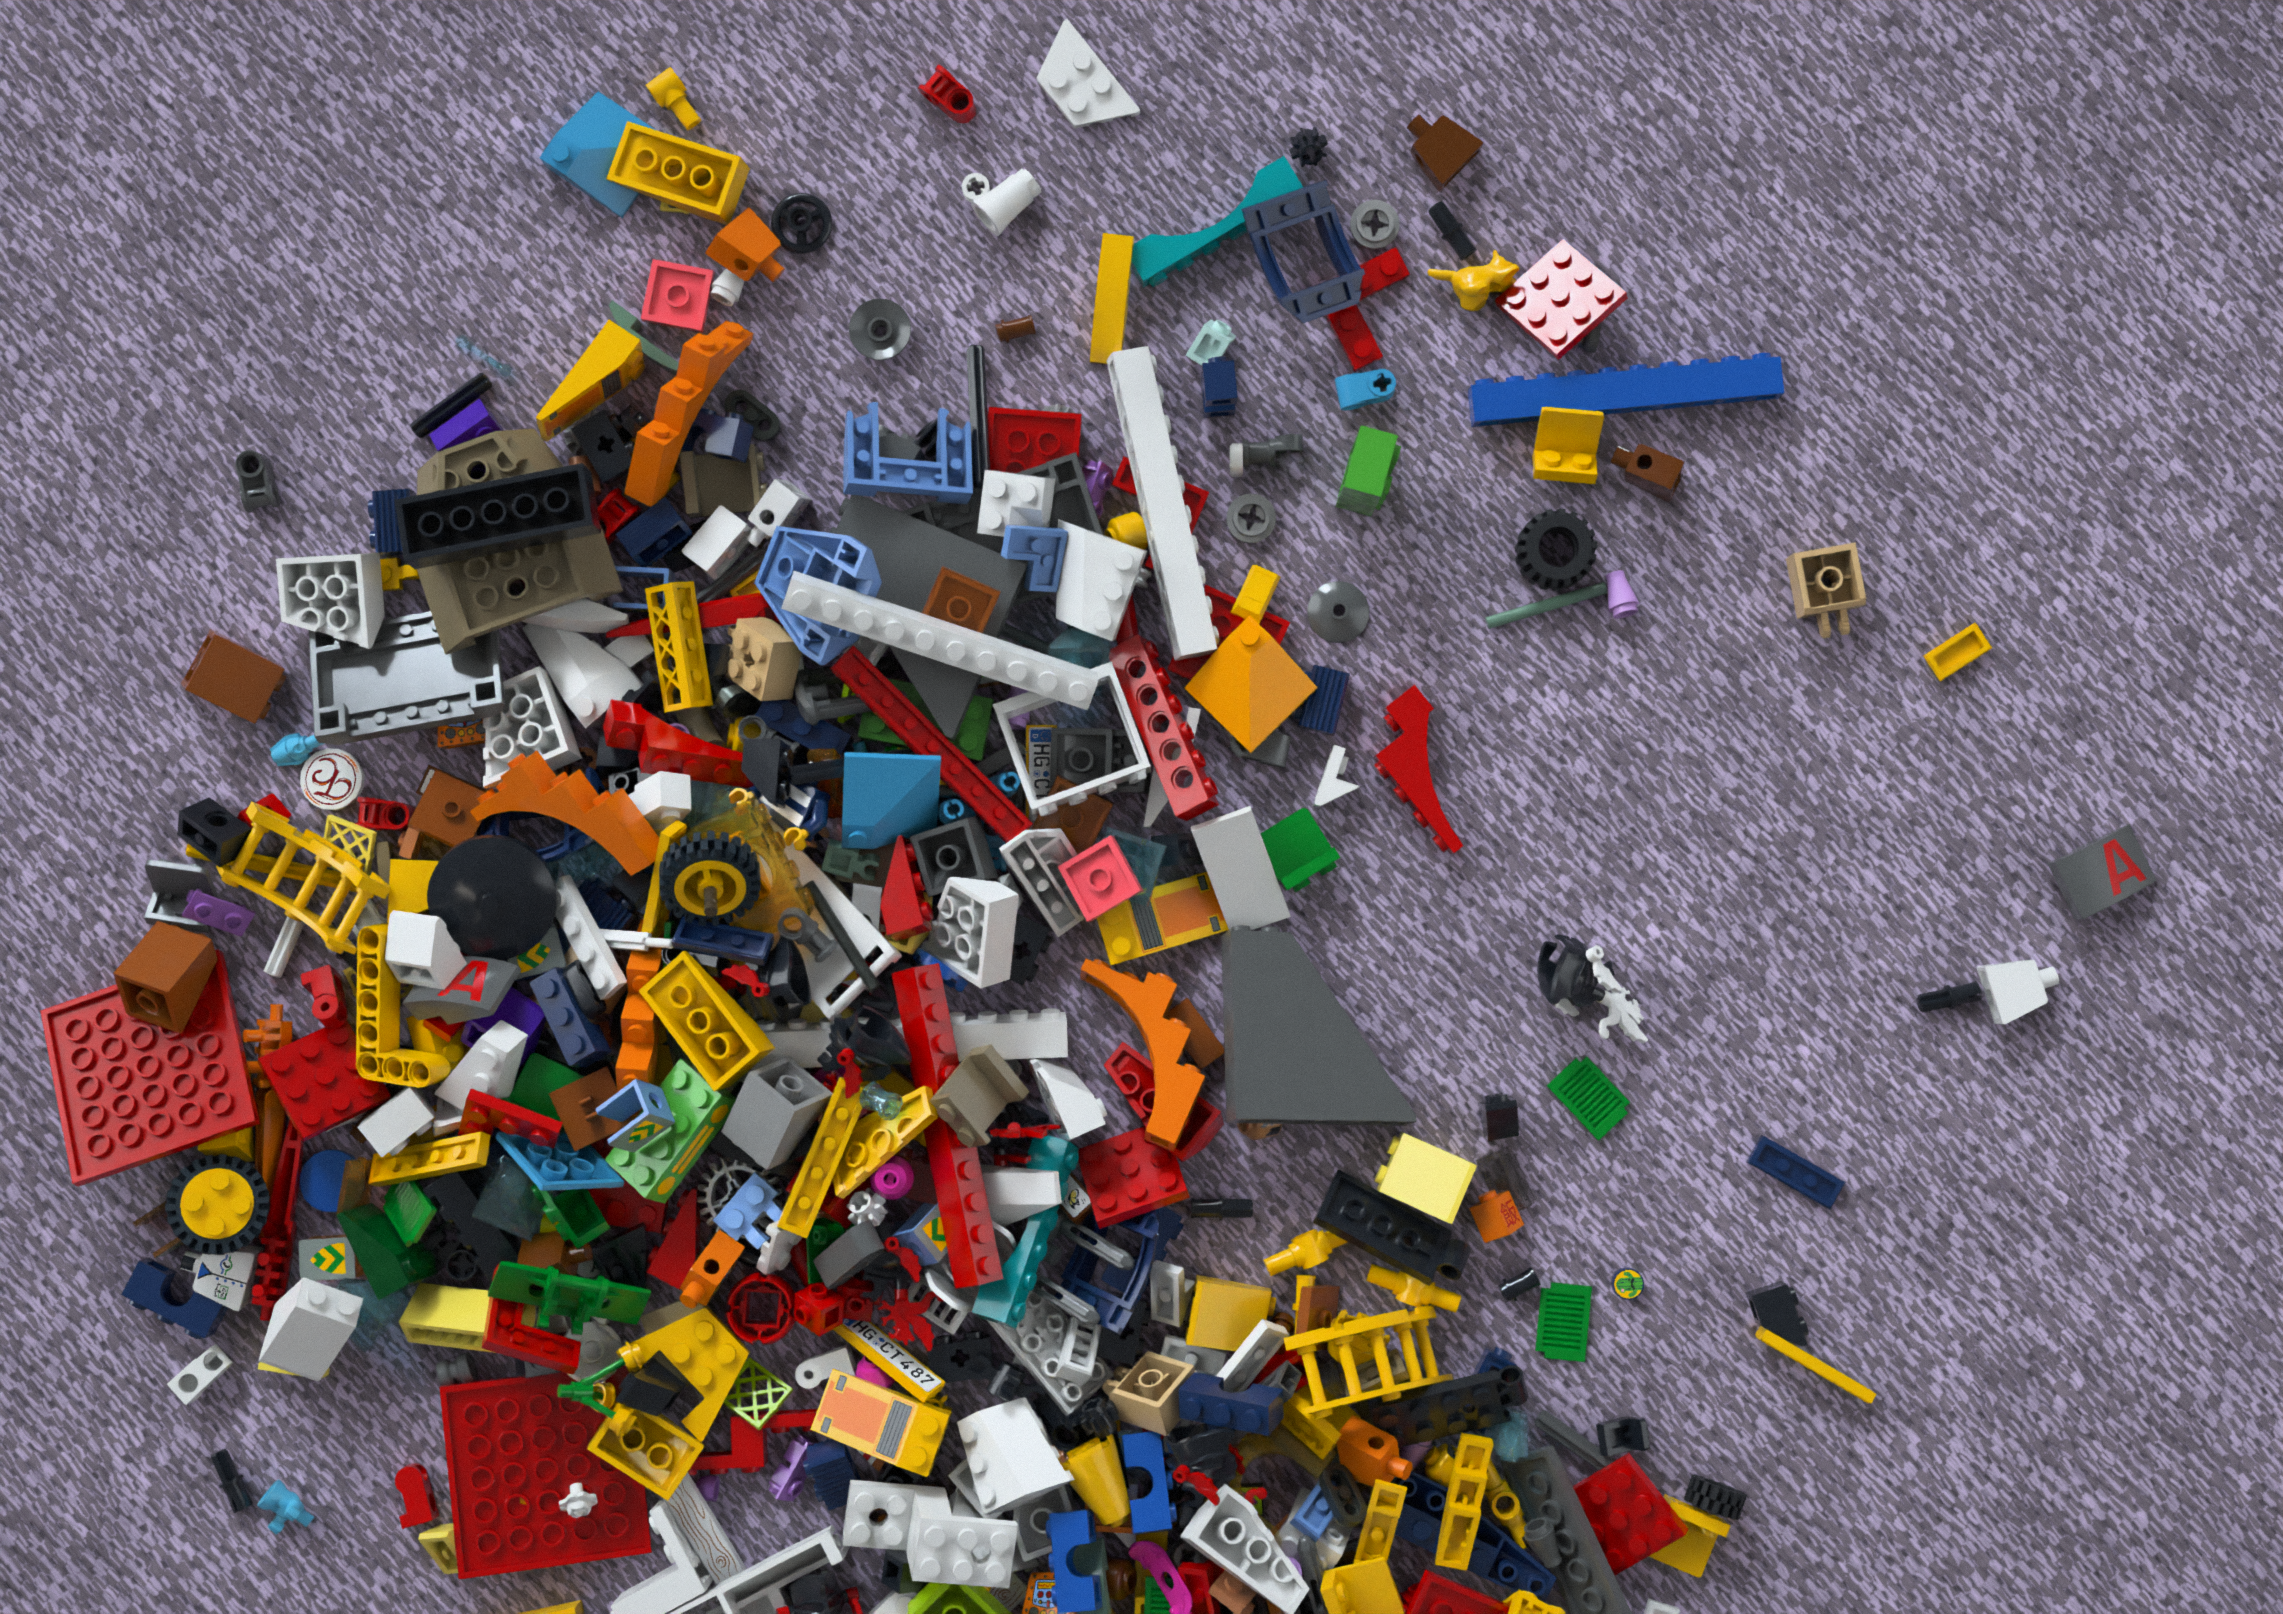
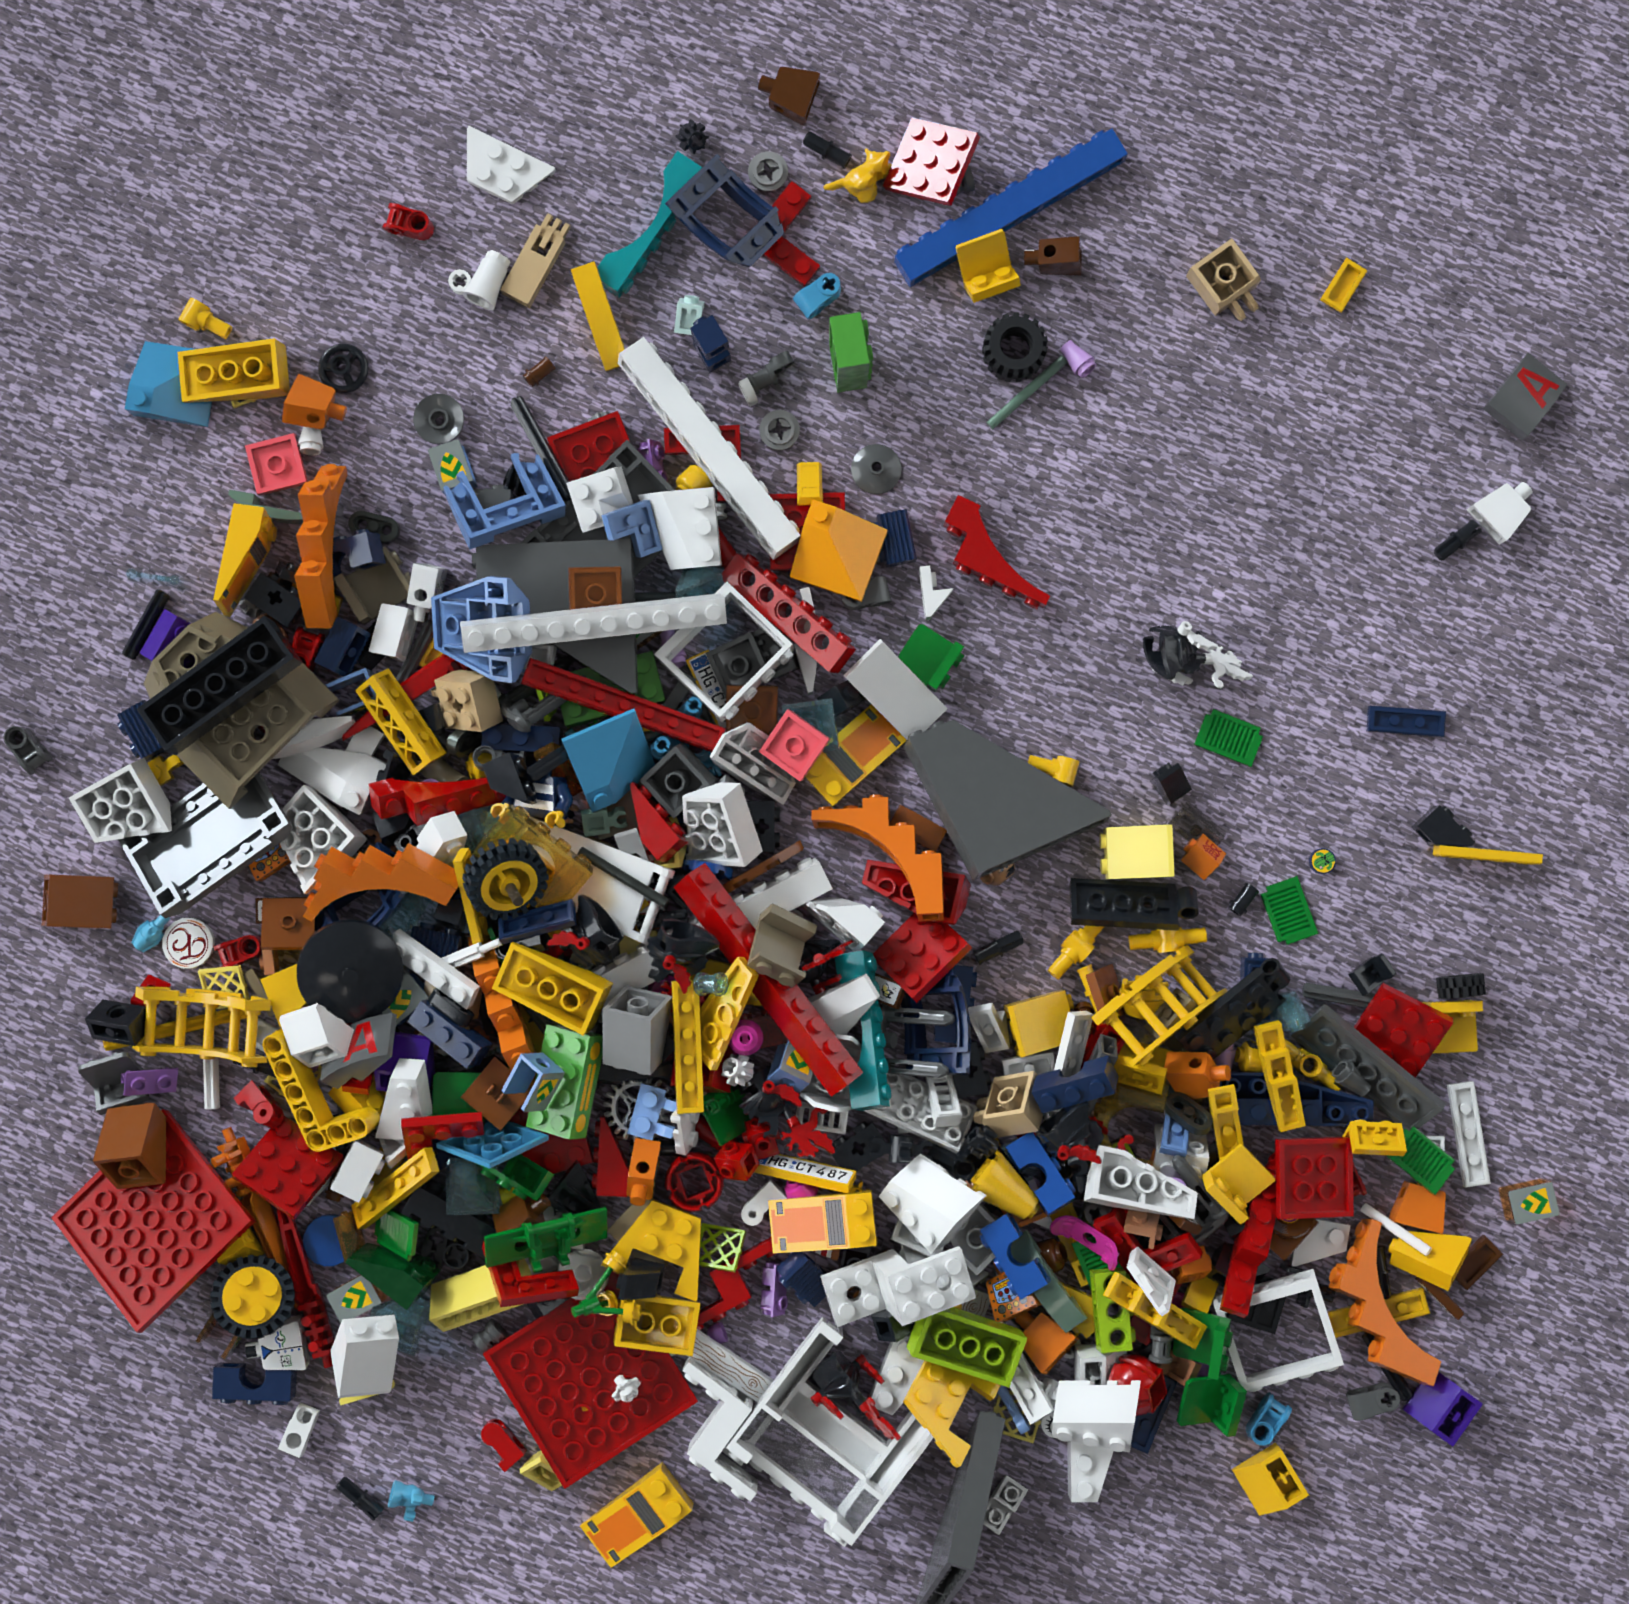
camera: 25 degrees left, 0 degrees up
(808, 934) = (598, 887): dark grey connector -> none
(849, 1254) = (740, 1109): dark grey beam -> none
(867, 384) = (448, 462): none -> piece
(1001, 996) = (763, 867): none -> dark orange tile
(1062, 210) = (531, 267): none -> tan hinge
(1383, 1042) = (1062, 769): none -> yellow pin

